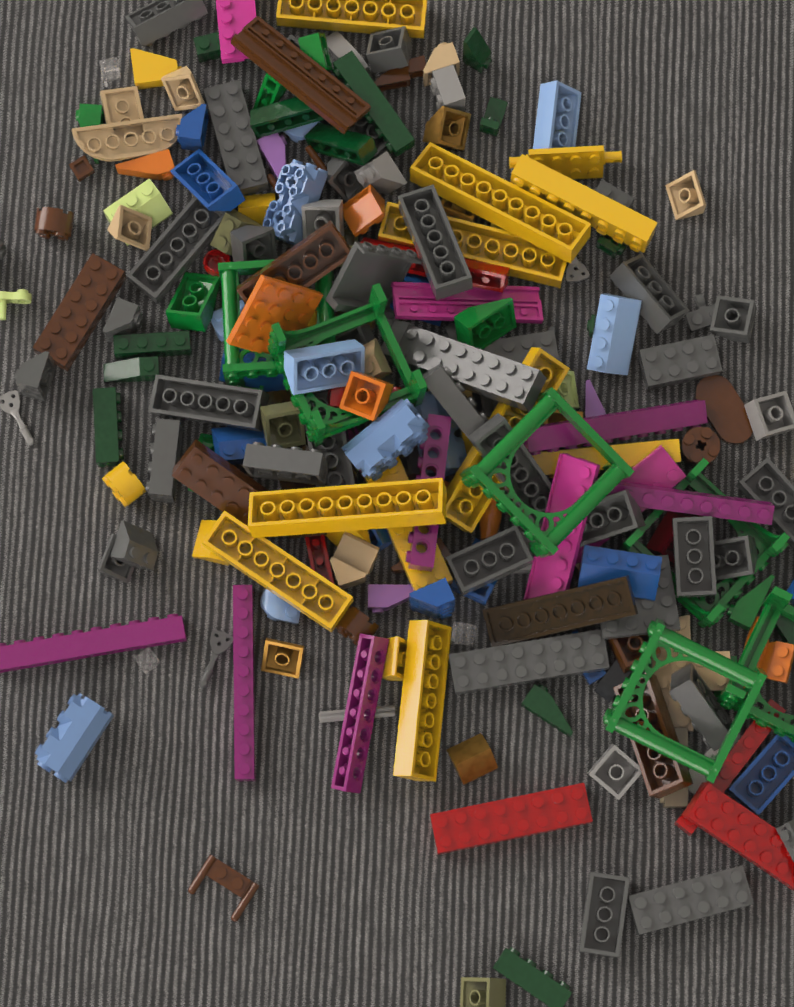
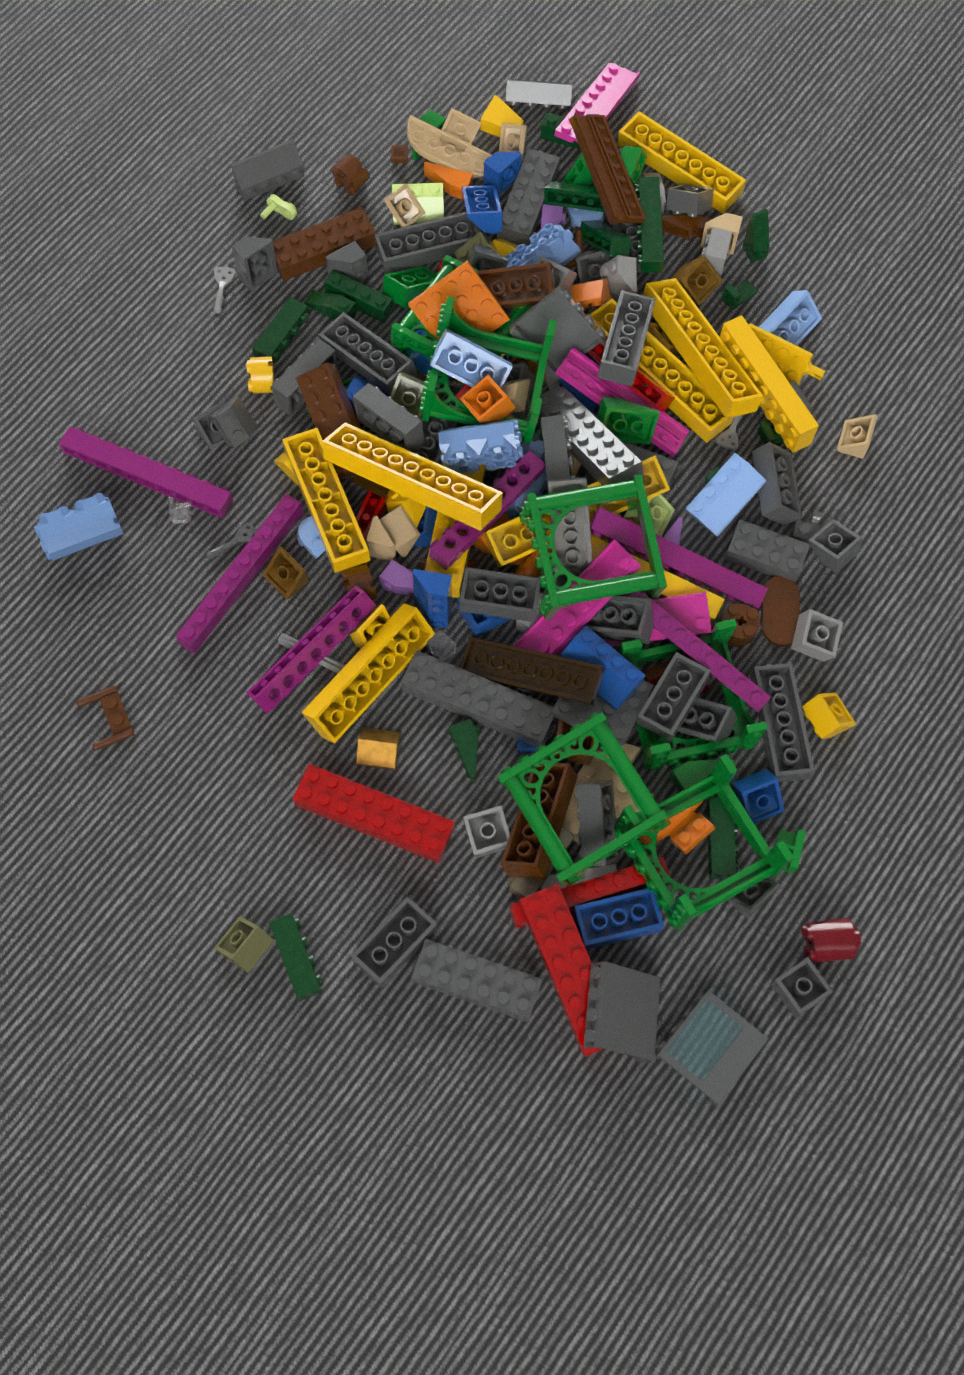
camera: 30 degrees right, 10 degrees down
(109, 70) = (469, 101): clear panel -> none

